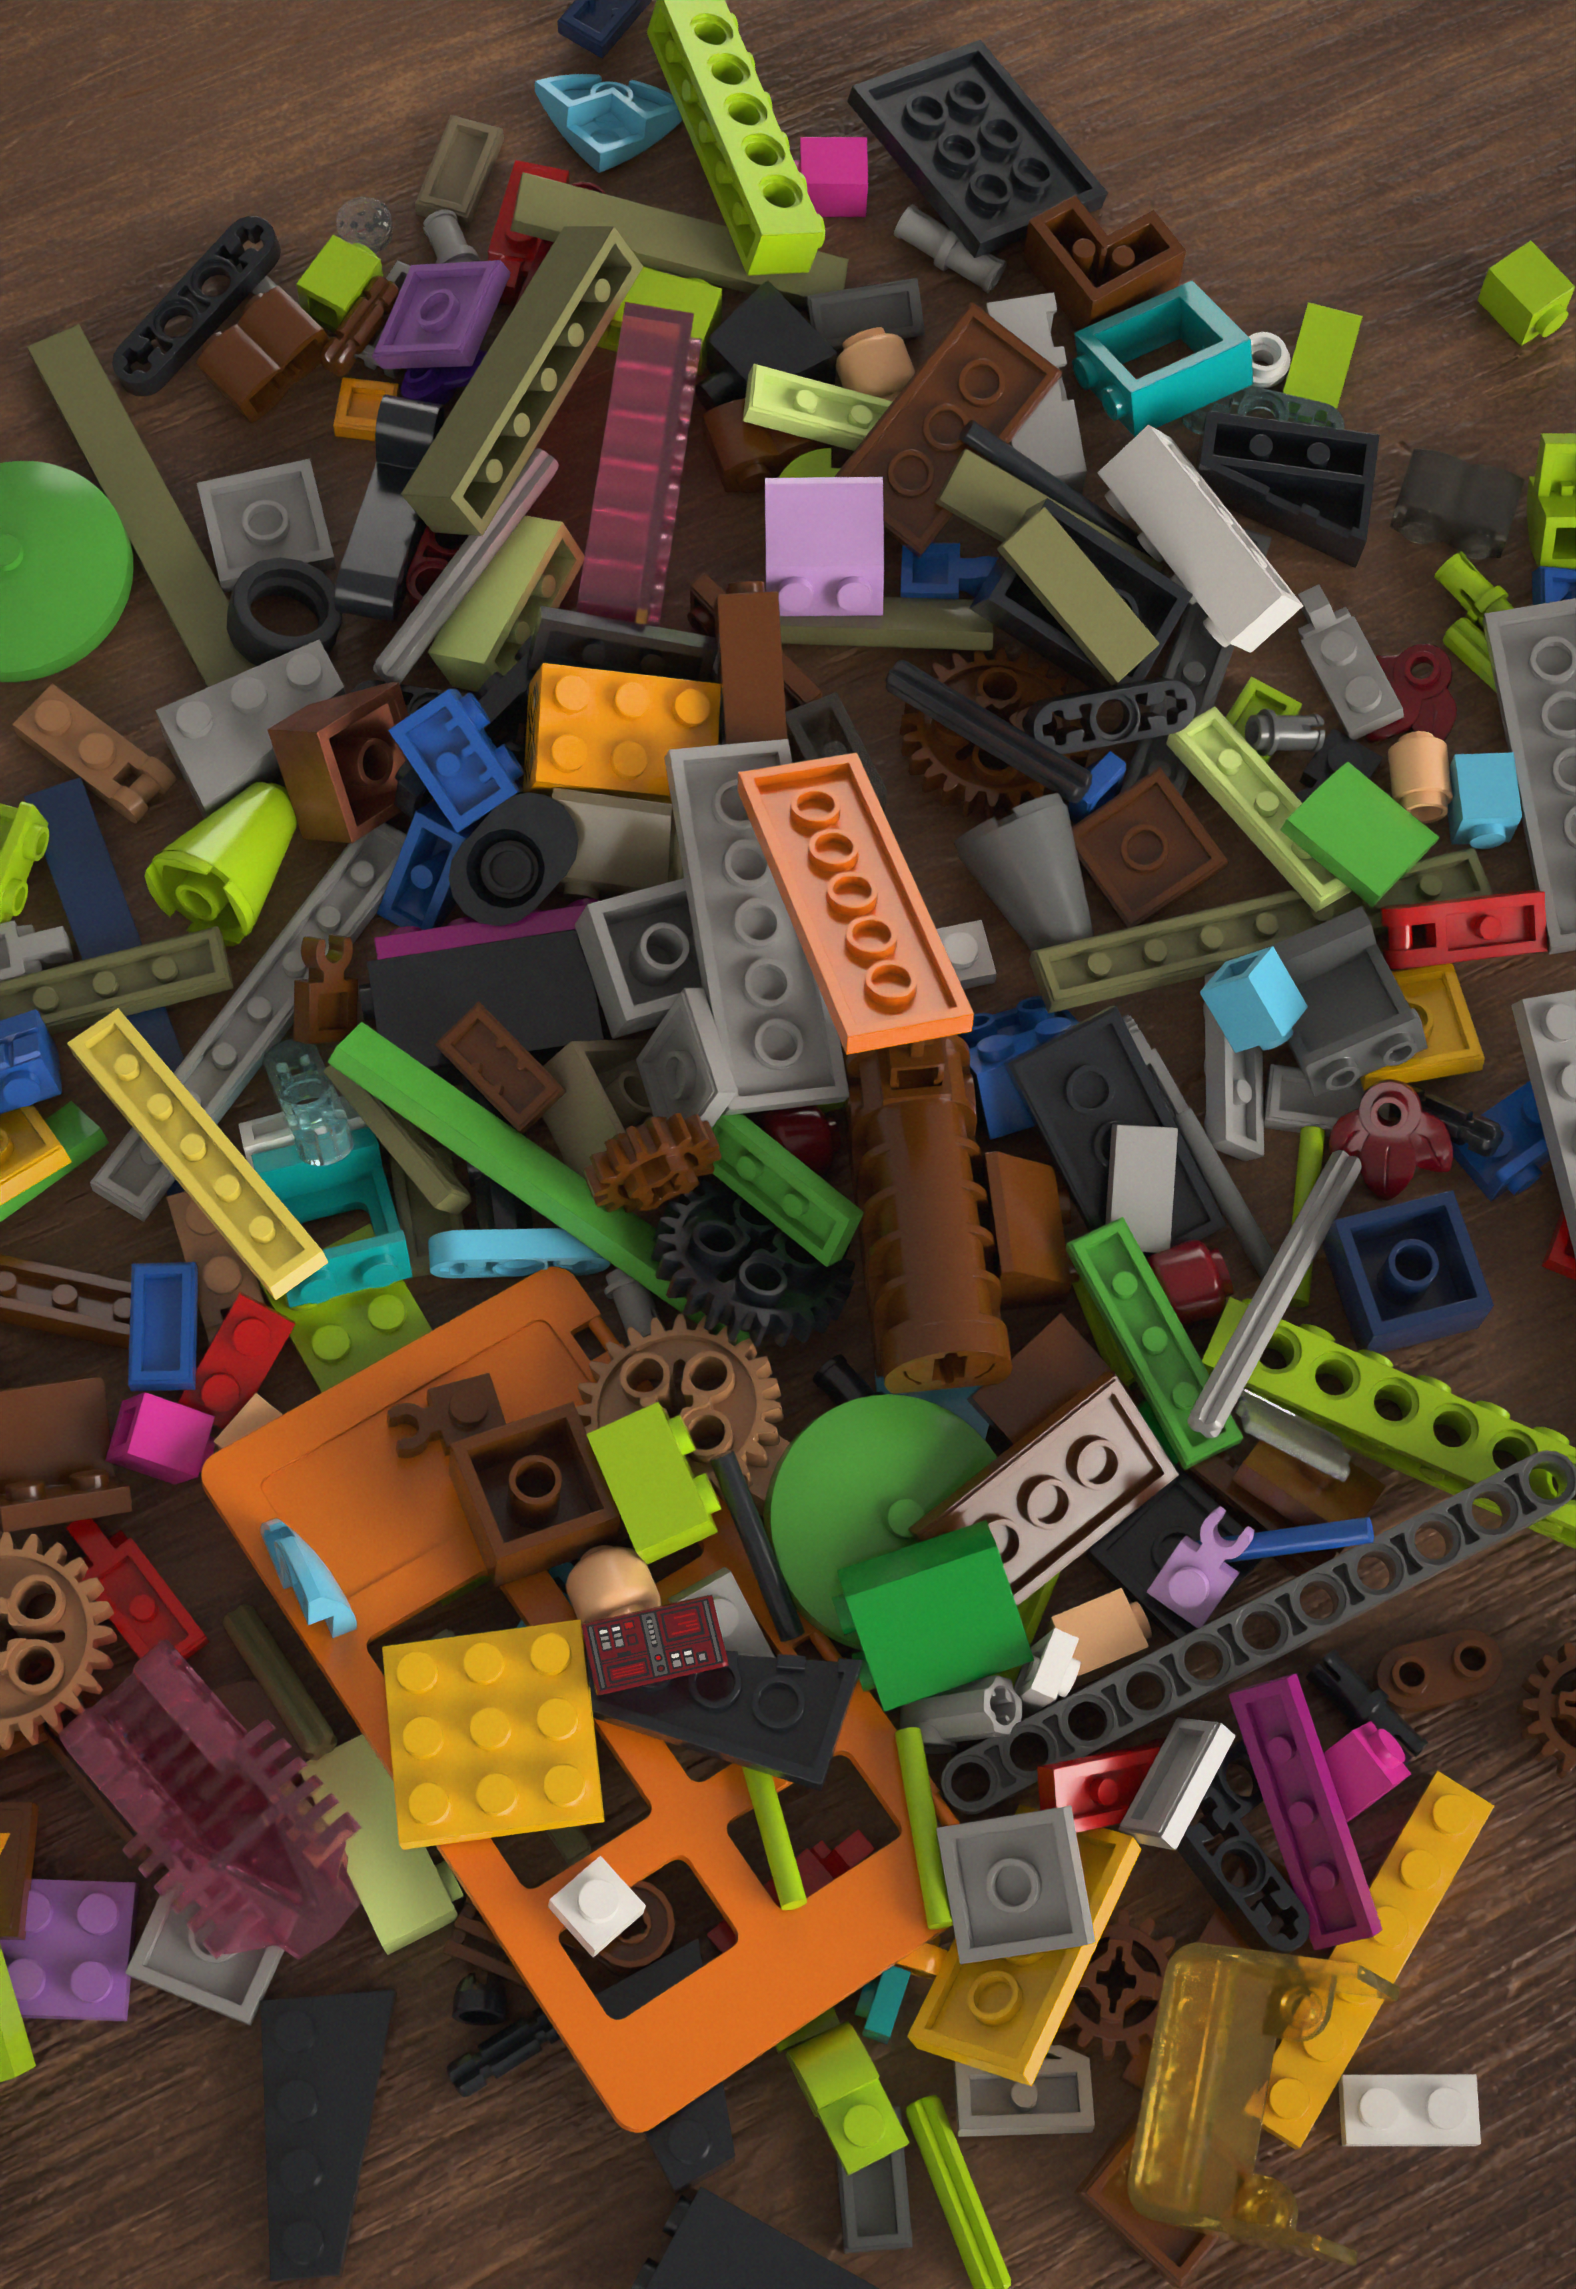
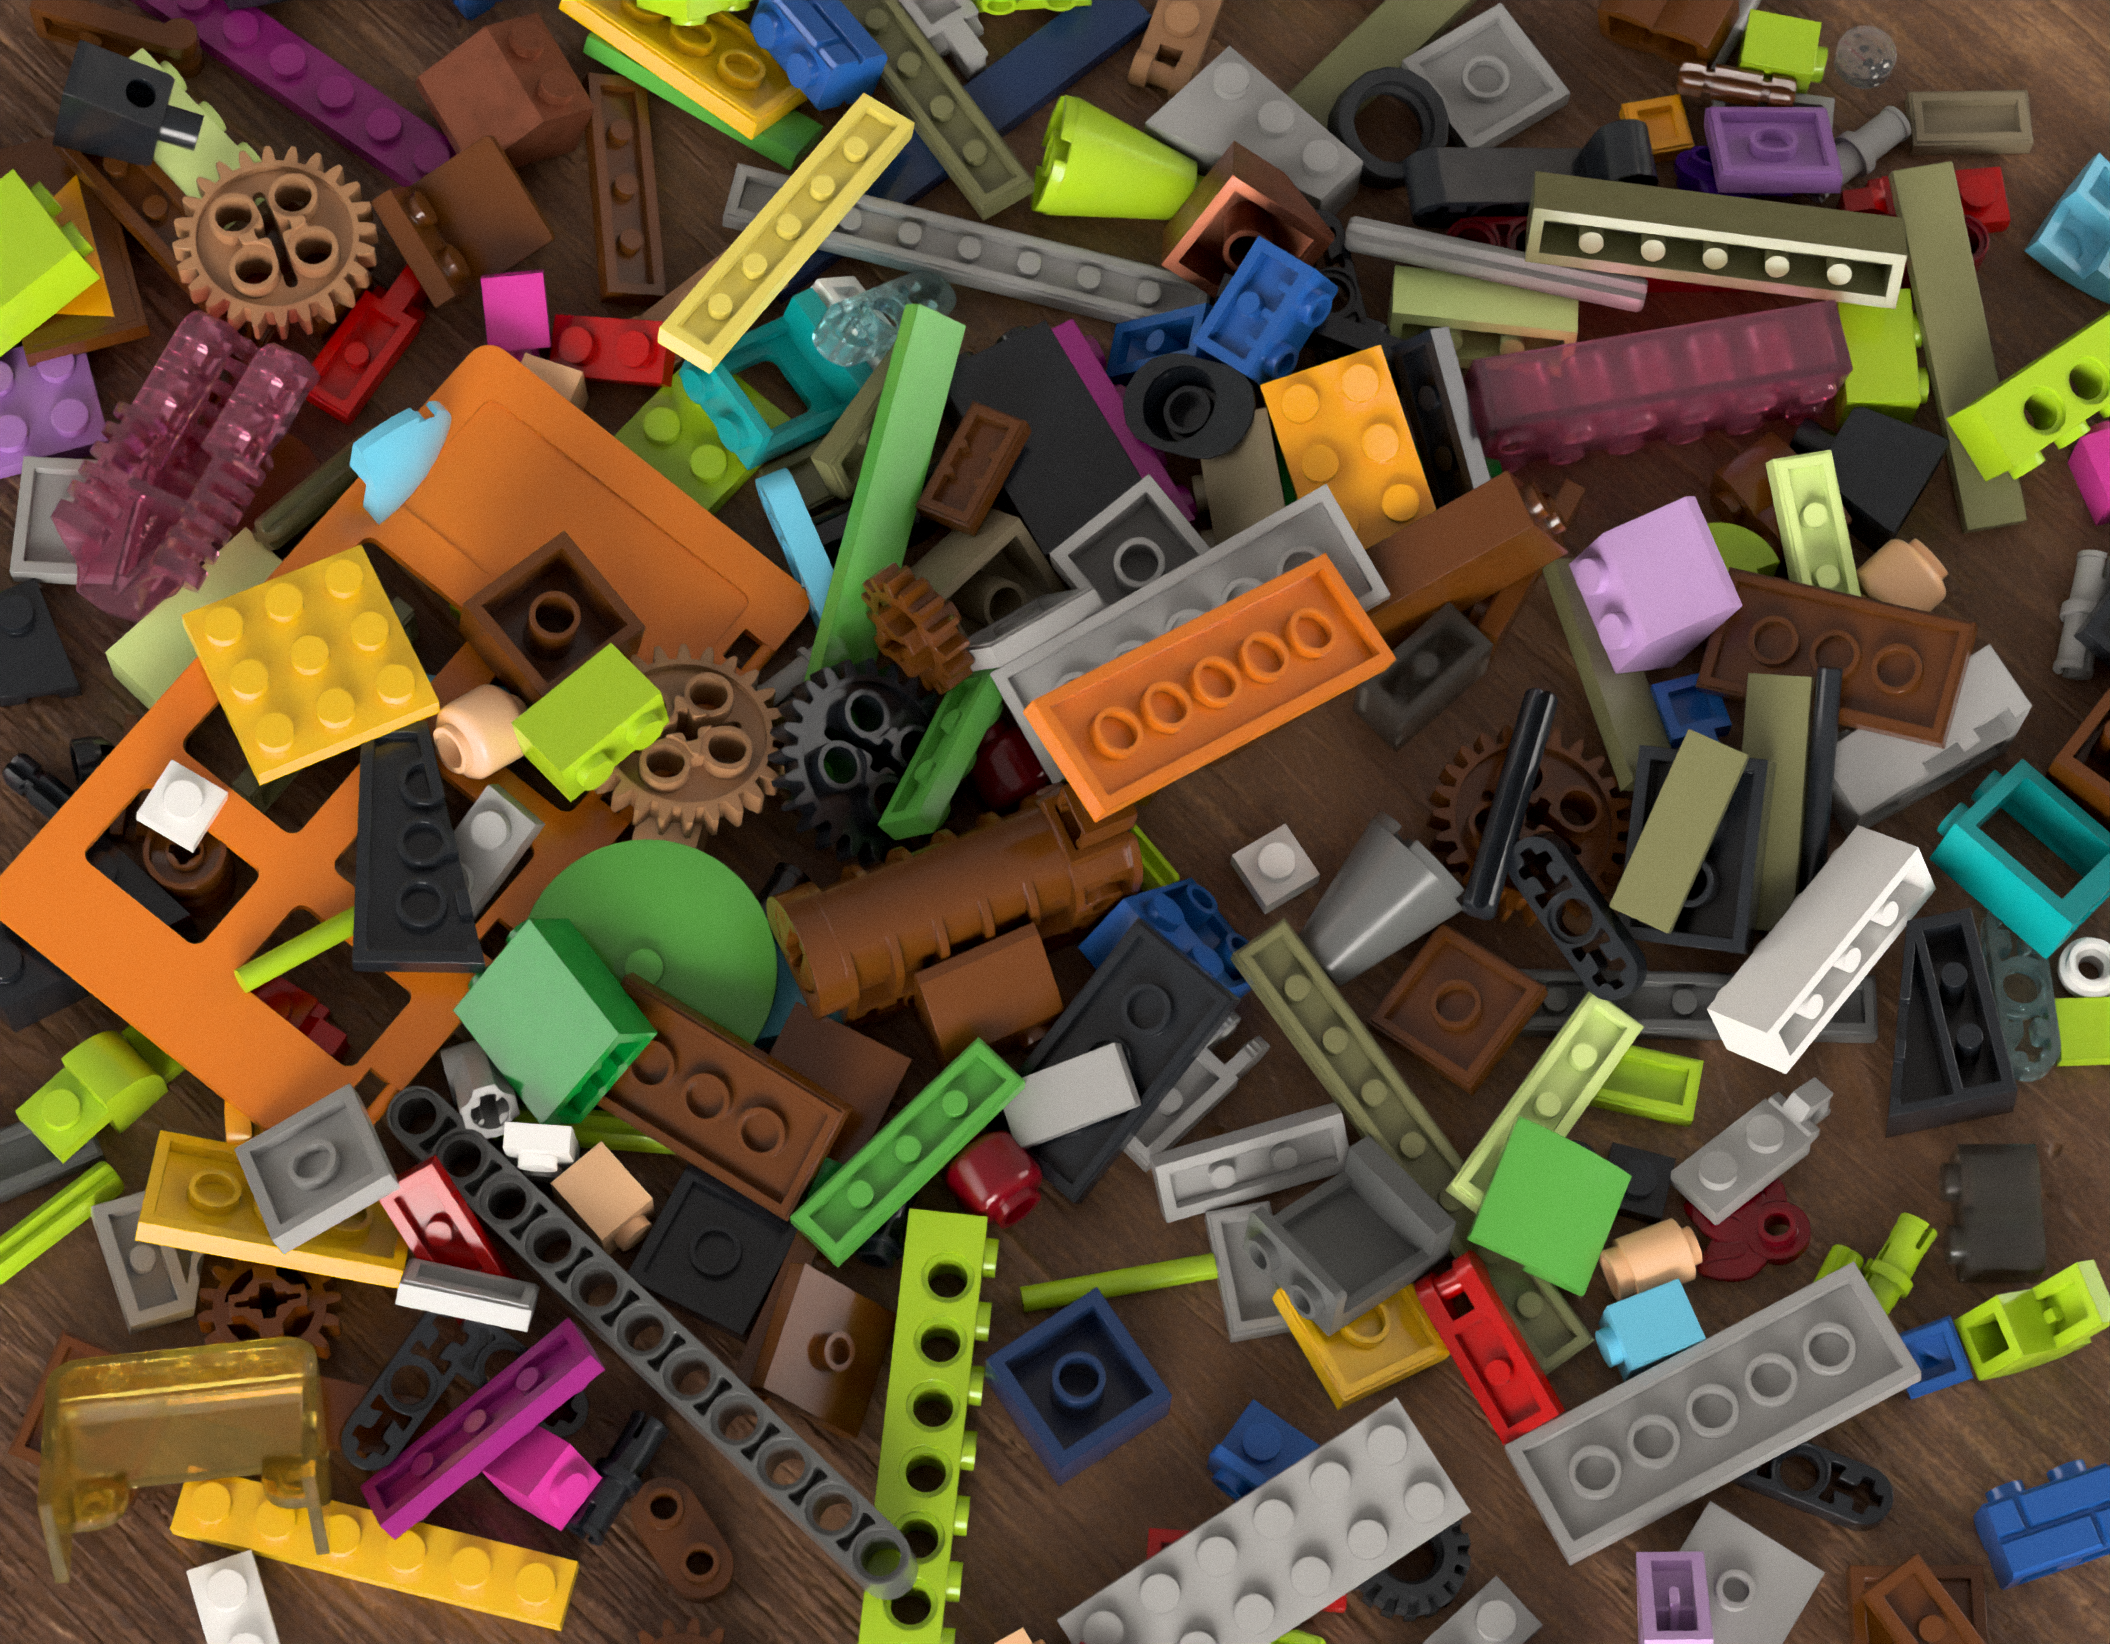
camera: 70 degrees right, 0 degrees up
(163, 1326) = (619, 272): blue tile -> none
(326, 1000) = (999, 302): reddish brown plate -> none
(453, 1414) = (616, 548): reddish brown plate -> none
(654, 1645) = (432, 770): slope -> none
(757, 1546) = (572, 843): black bar -> none
(853, 310) = (1975, 563): dark grey tile -> none
(881, 2003) = (189, 1109): teal plate -> none
(923, 1827) = (364, 1077): lime bar -> none
(1106, 785) = (1509, 940): blue tile -> none
(1196, 1573) = (687, 1260): lavender plate -> none
(1225, 1192) = (1105, 1191): dark grey bar -> none
(1254, 1000) = (1311, 1148): medium azure brick -> none
(1274, 732) = (1640, 1101): dark grey pin -> none
(1274, 1295) = (1003, 1255): light grey axle -> none
(1293, 1435) = (860, 1313): clear piece -> none
(1306, 1539) = (738, 1322): blue bar -> none
(1394, 1147) = (1225, 1336): dark red plate -> none
(1479, 1132) = (1266, 1386): black axle -> none

